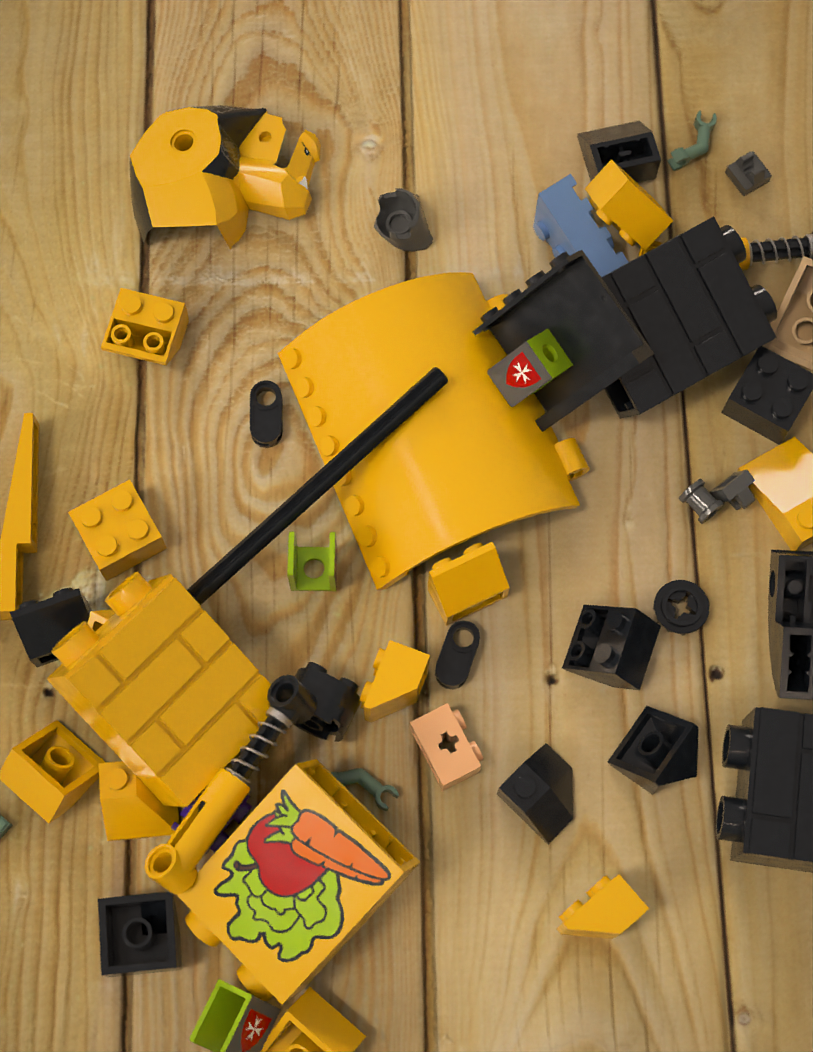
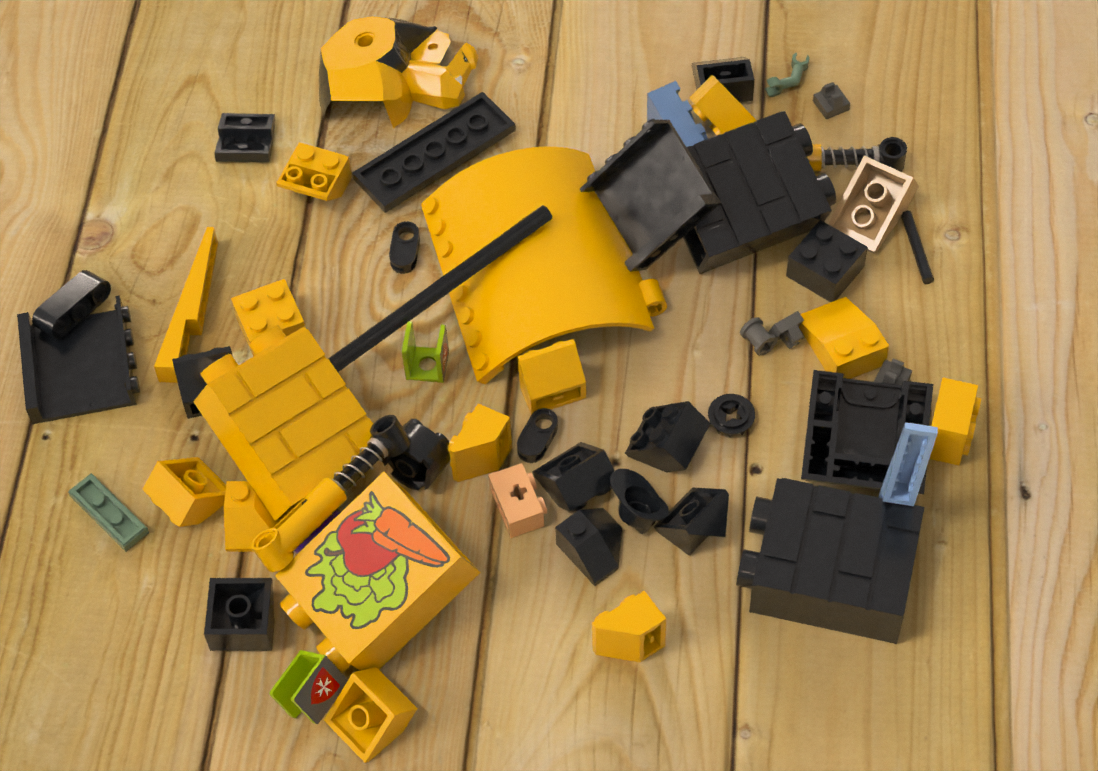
camera: 10 degrees right, 15 degrees down
(51, 277) = (245, 137): none -> black slope
(284, 281) = (433, 151): none -> black plate
(367, 782) = (452, 527): sand green arm -> none
(403, 221) = (537, 115): dark grey hair -> none
(511, 707) = (576, 476): none -> black slope
(529, 367) = (622, 216): piece -> none
(589, 736) = (638, 500): none -> black piece

